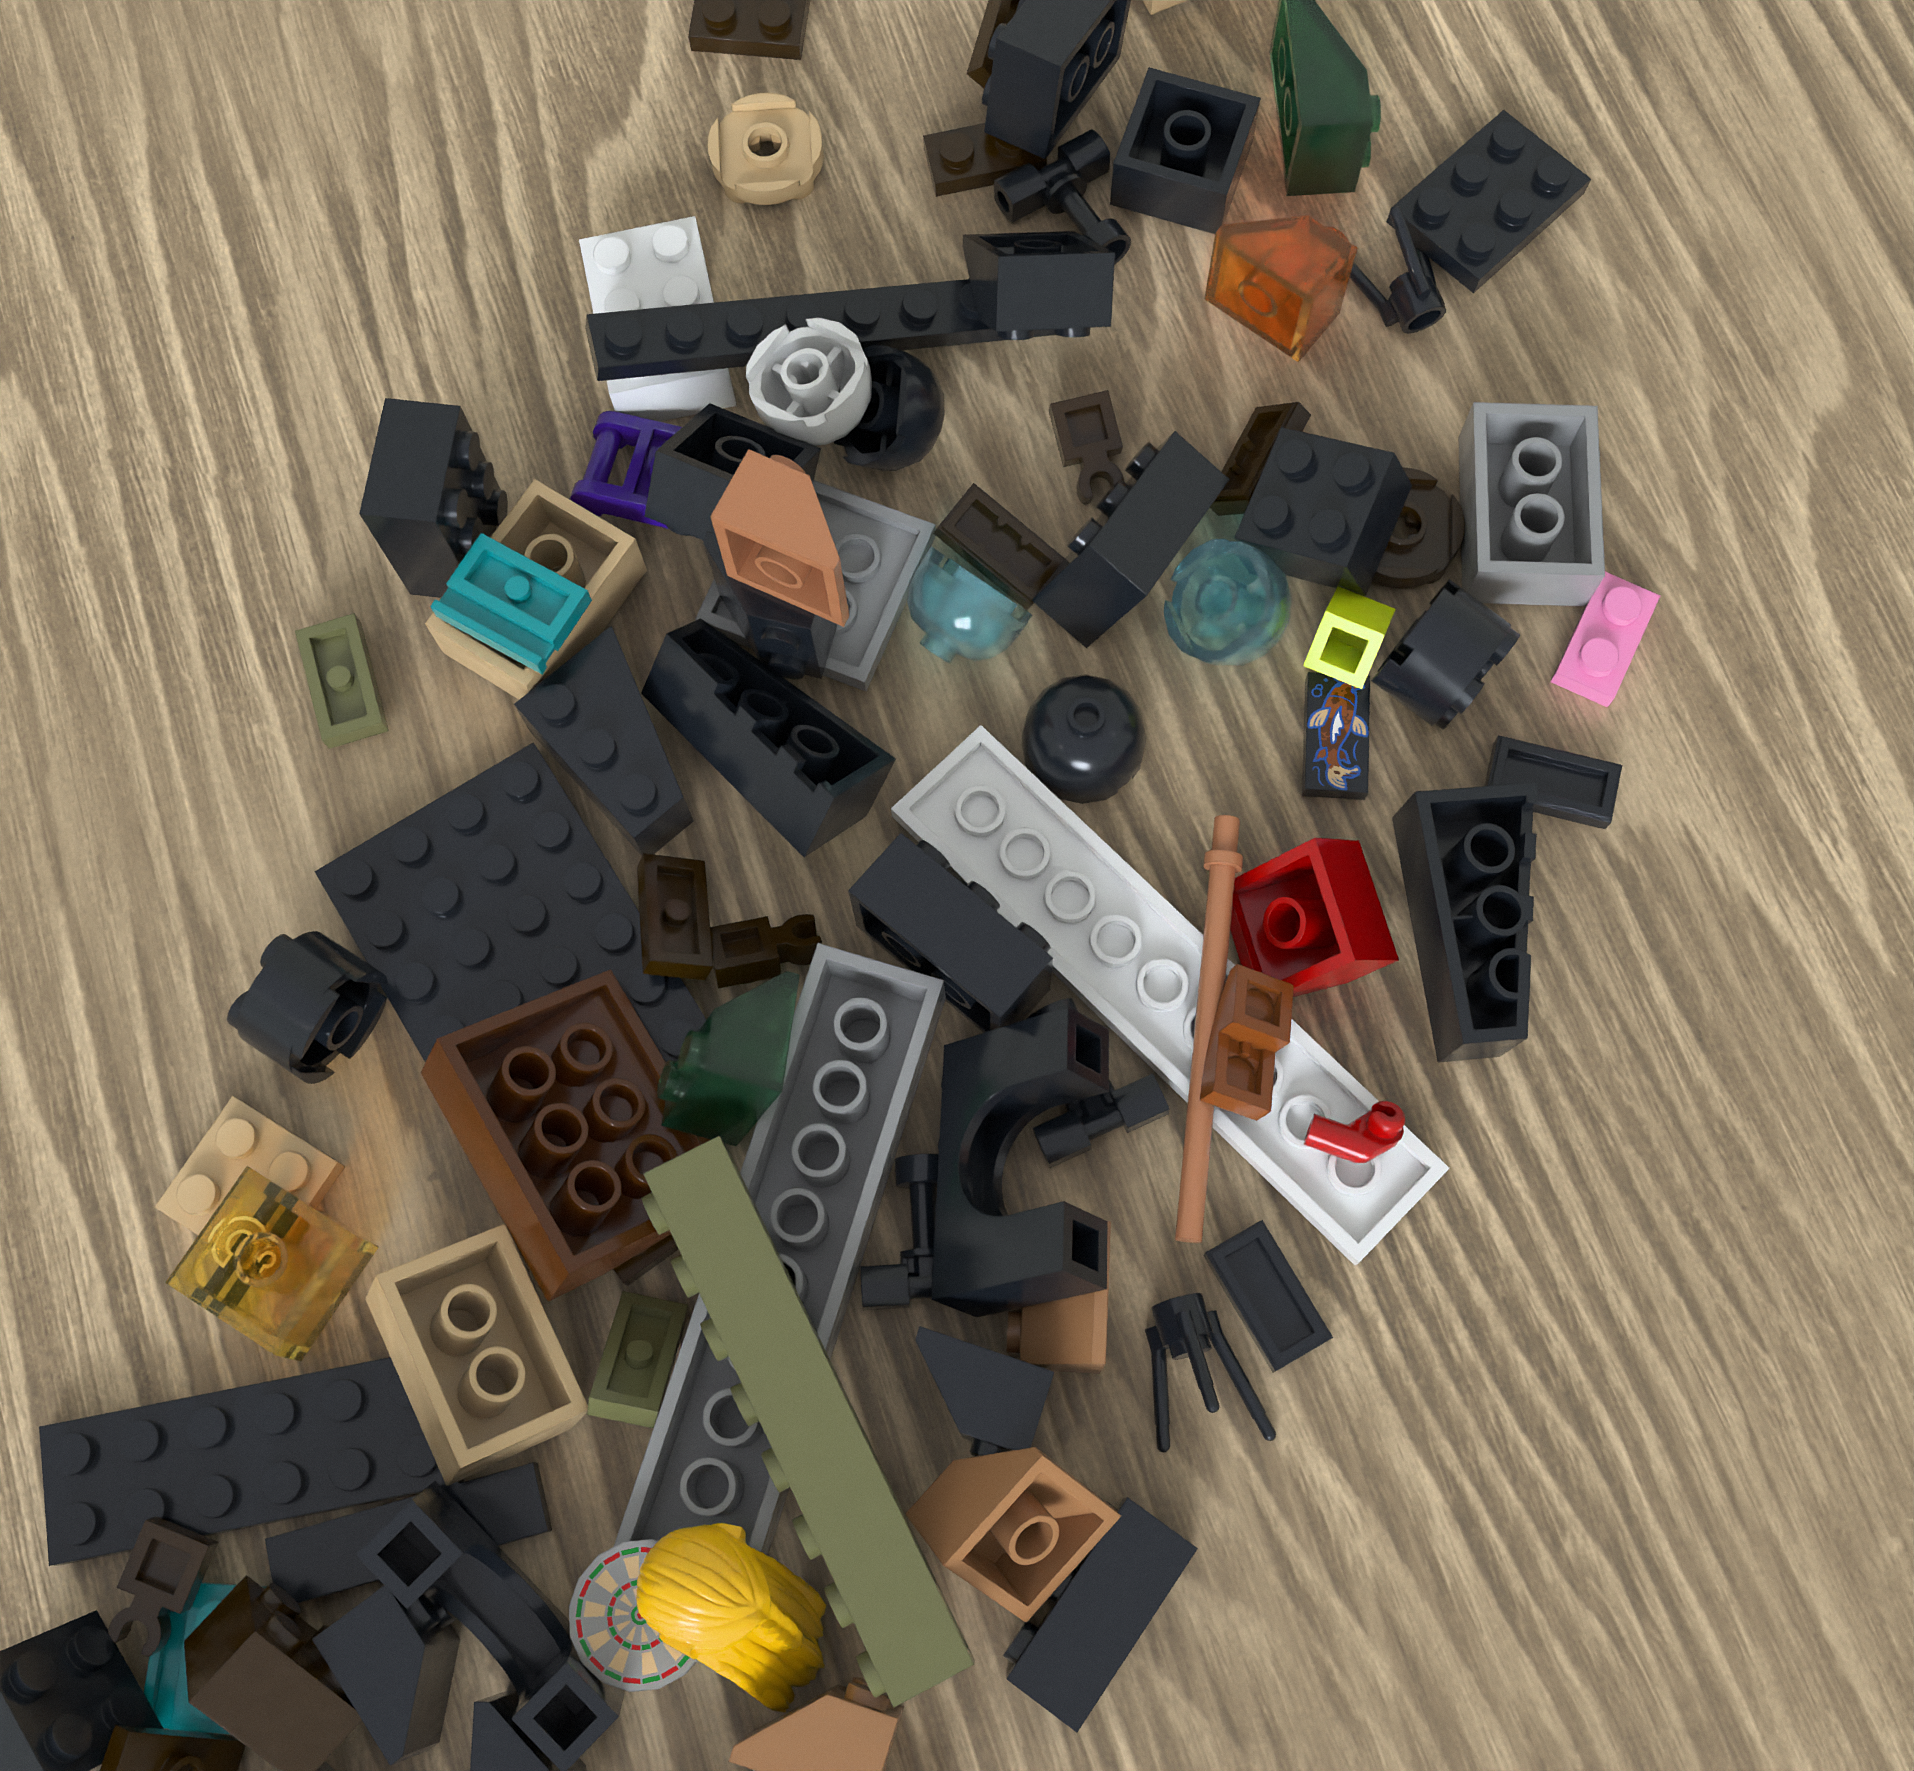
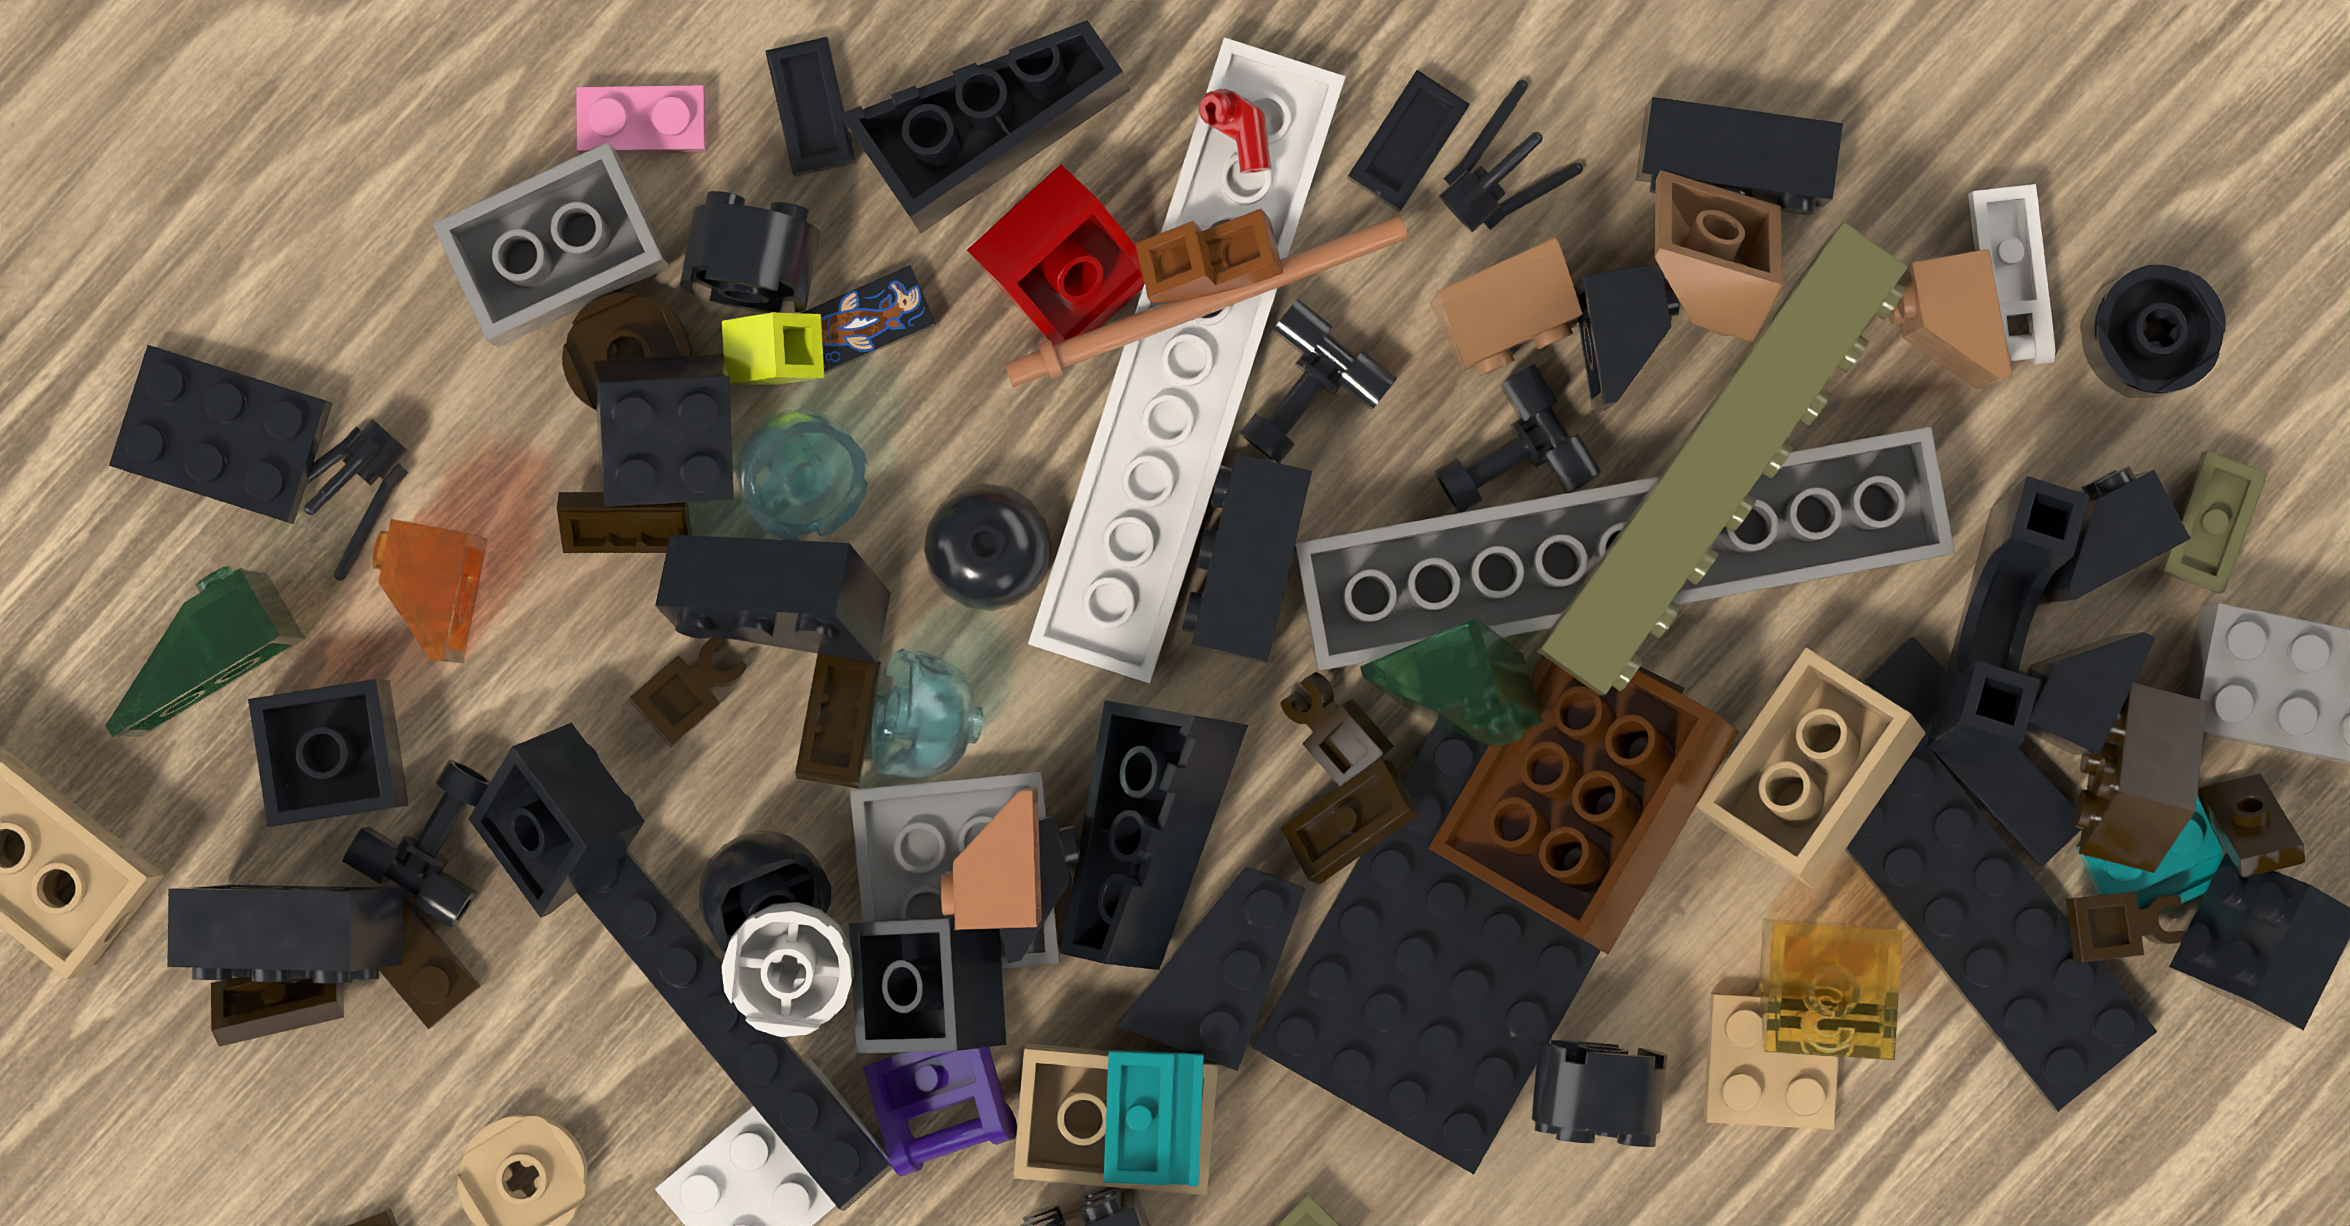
camera: 120 degrees left, 15 degrees up
(610, 1631) = (1941, 508): light grey tile -> none
(637, 1360) = (1742, 634): olive plate -> none
(733, 1610) = (1899, 439): yellow hair -> none
(989, 1094) = (1374, 456): black arch -> none

